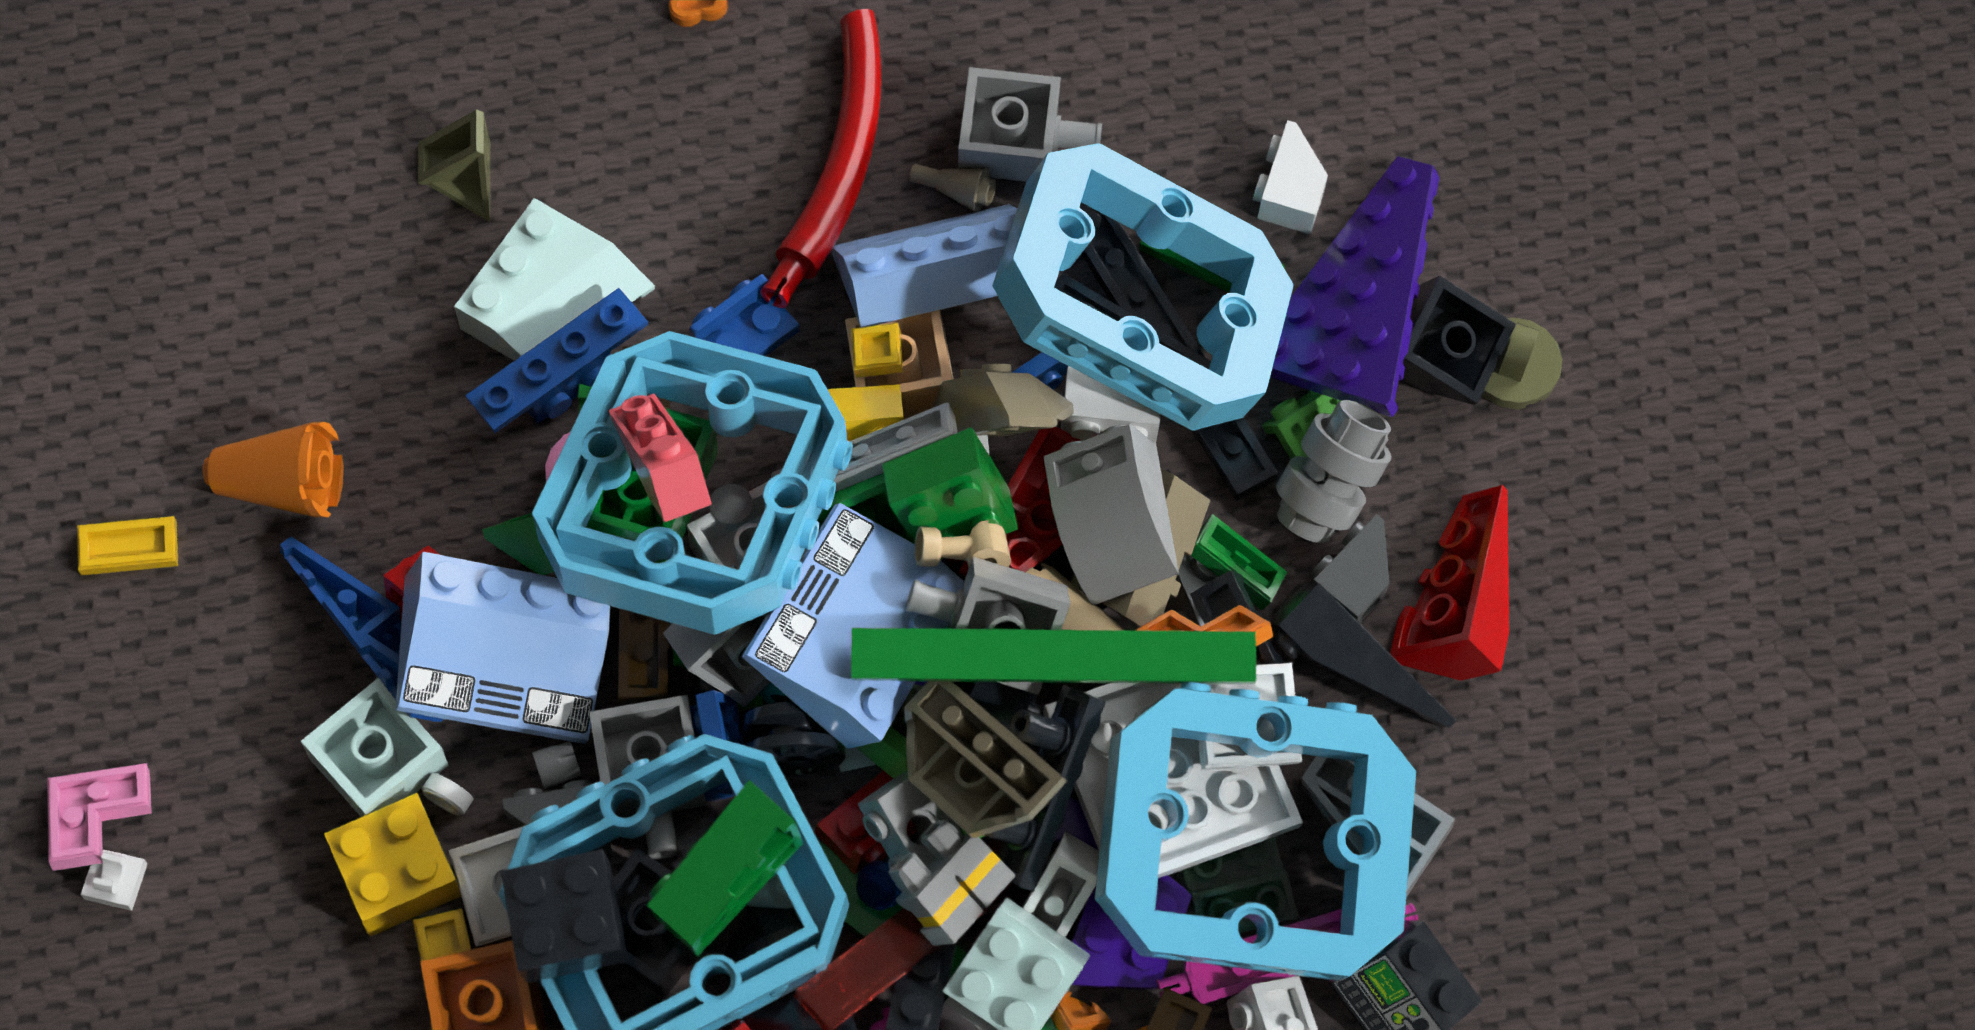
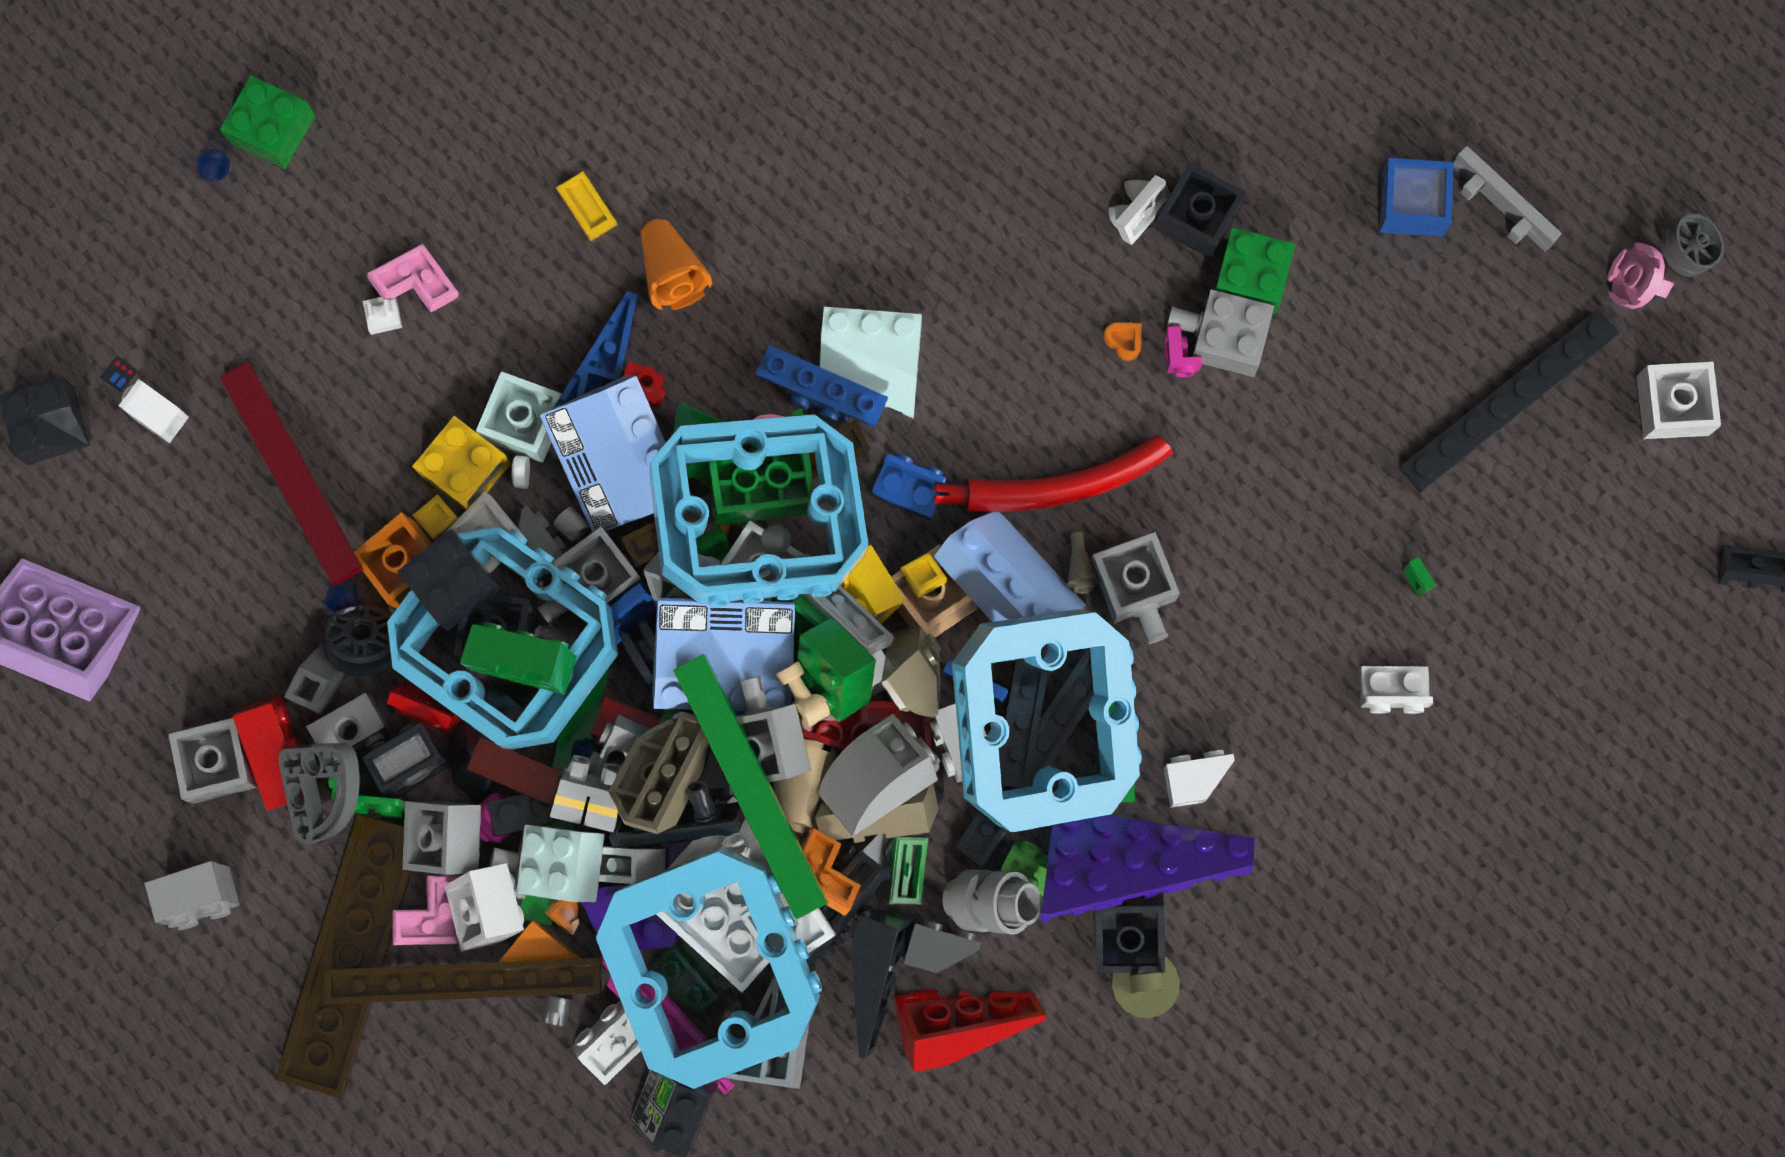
camera: 70 degrees right, 10 degrees up
(459, 162) = (931, 258): olive slope -> none
(661, 456) = (751, 481): coral slope -> none

